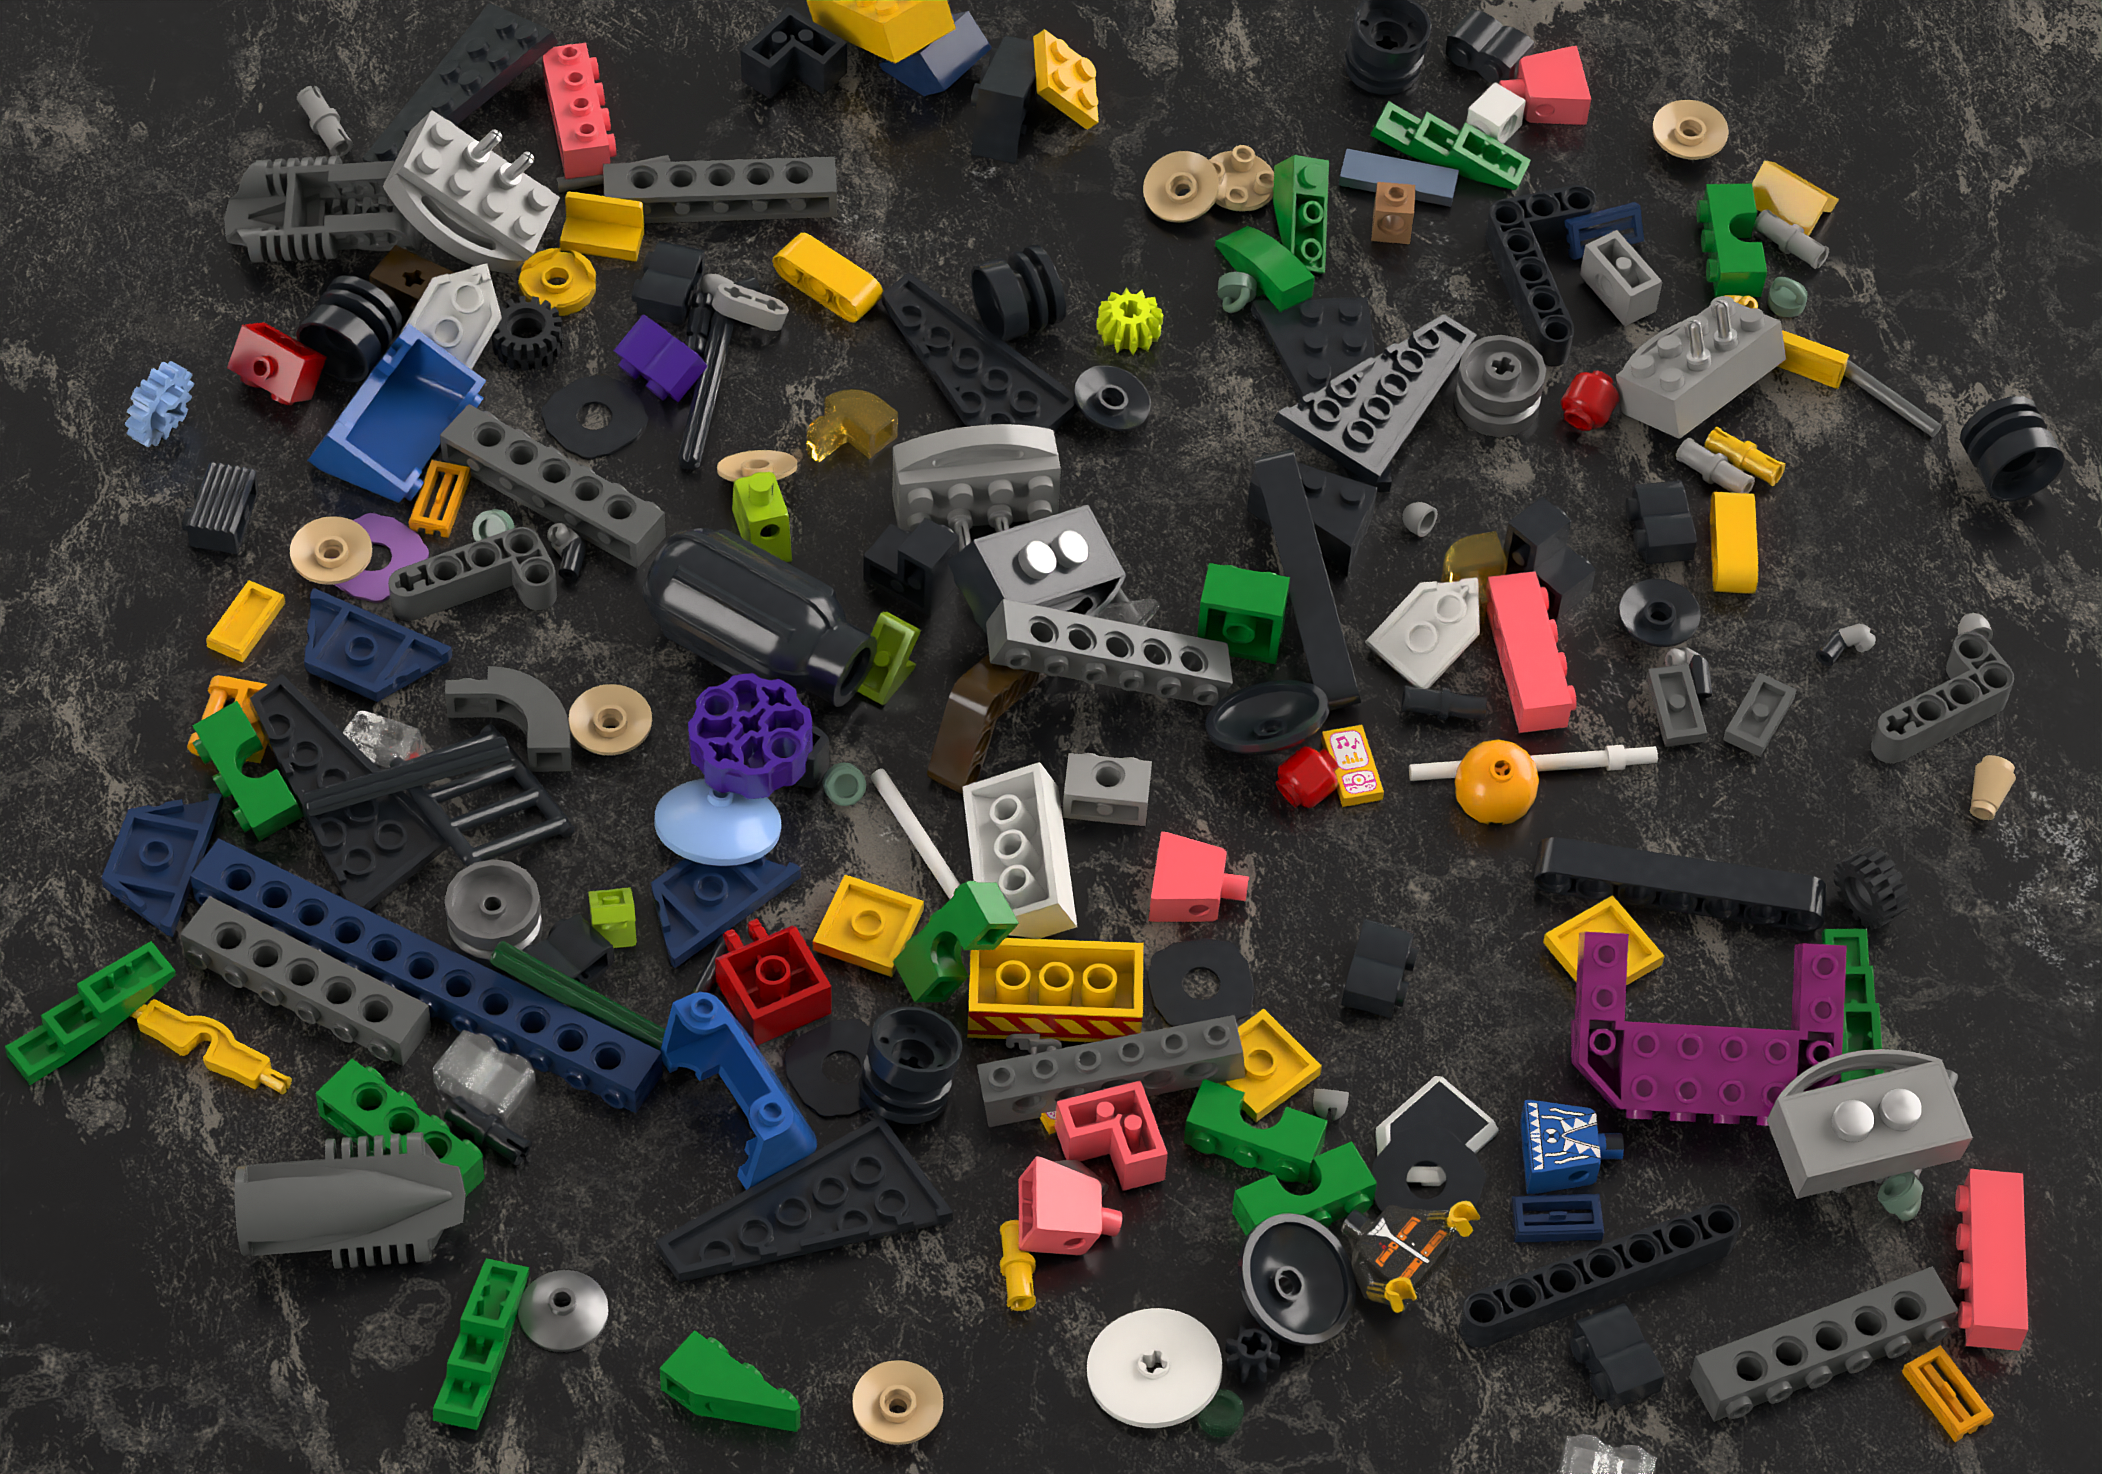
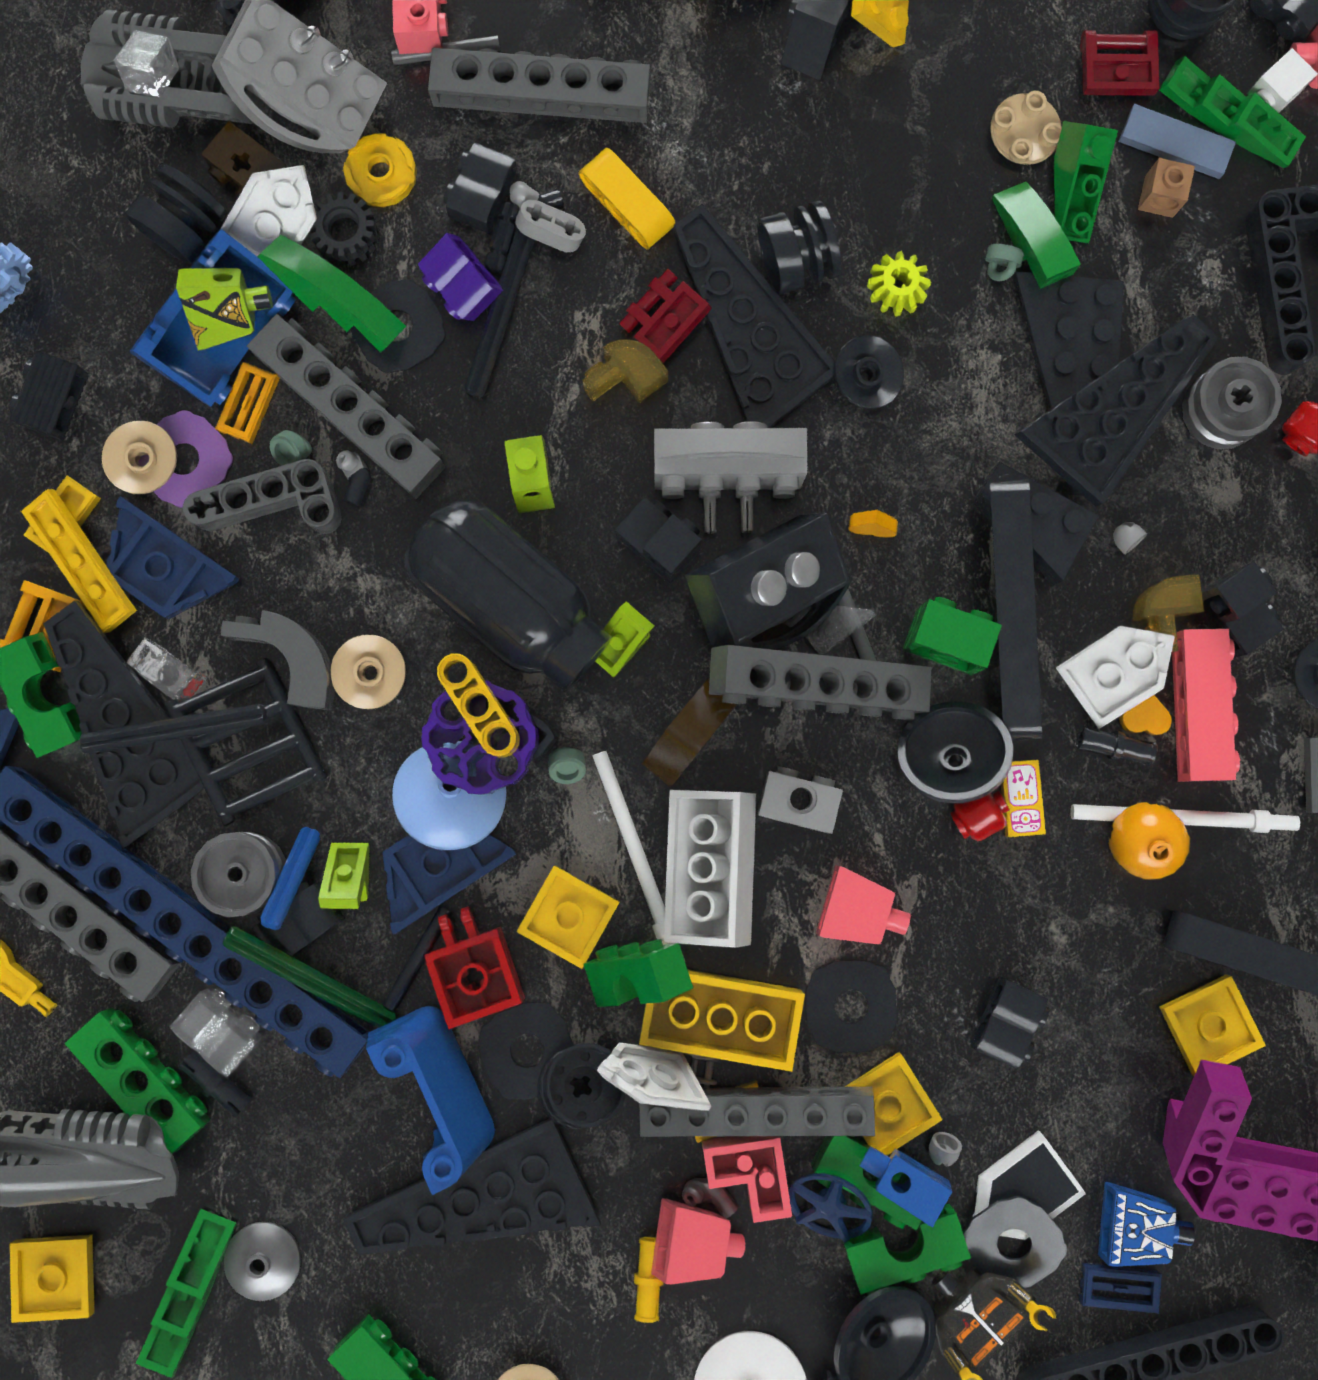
camera: 10 degrees right, 30 degrees up
(274, 645) = (78, 560): none -> yellow tile
(276, 363) = (108, 241): red brick -> none
(312, 193) = (146, 64): none -> clear brick
(320, 1345) = (51, 1278): none -> yellow plate
(409, 399) = (219, 304): none -> lime torso
(513, 374) = (326, 286): none -> green slope
(552, 909) = (290, 878): none -> blue axle
(602, 226) = (426, 116): yellow panel -> none
(731, 666) = (464, 692): none -> yellow beam
(756, 461) = (533, 410): tan dish -> none
(896, 370) = (672, 320): none -> dark red plate
(992, 1023) = (654, 1077): none -> white tile
(1142, 531) = (873, 523): none -> light orange tile
(1179, 172) = (969, 114): tan dish -> none
(1209, 1157) = (830, 1205): none -> dark blue wheel
(1291, 1095) = (921, 1195): none -> blue torso
(1325, 118) = (1120, 72): none -> dark red plate
(1472, 675) = (1147, 717): none -> light orange tile

